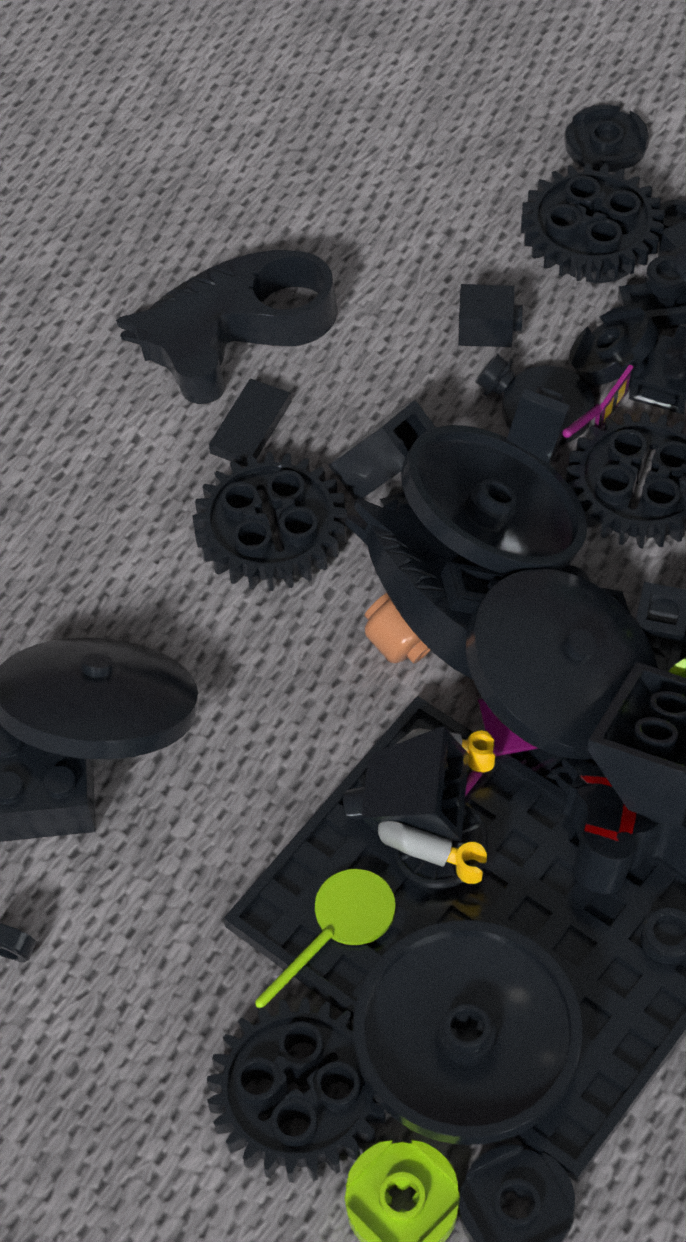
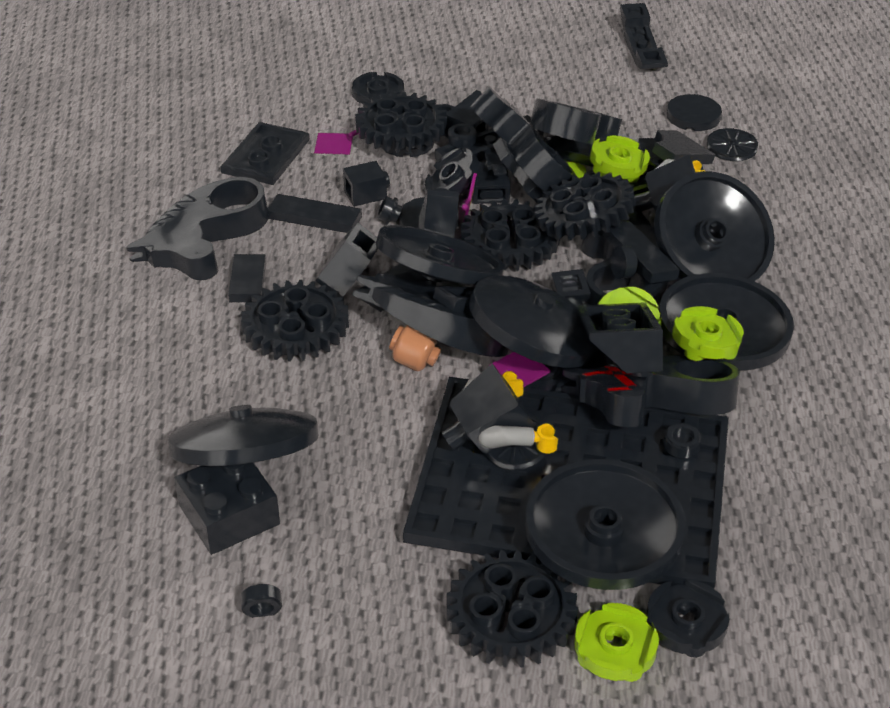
camera: 30 degrees left, 15 degrees down
(350, 909) = (481, 497): lime piece -> none
(385, 209) = (265, 153): none -> black tile
(396, 342) = (314, 213): none -> black tile
(490, 220) = (334, 143): none -> magenta piece

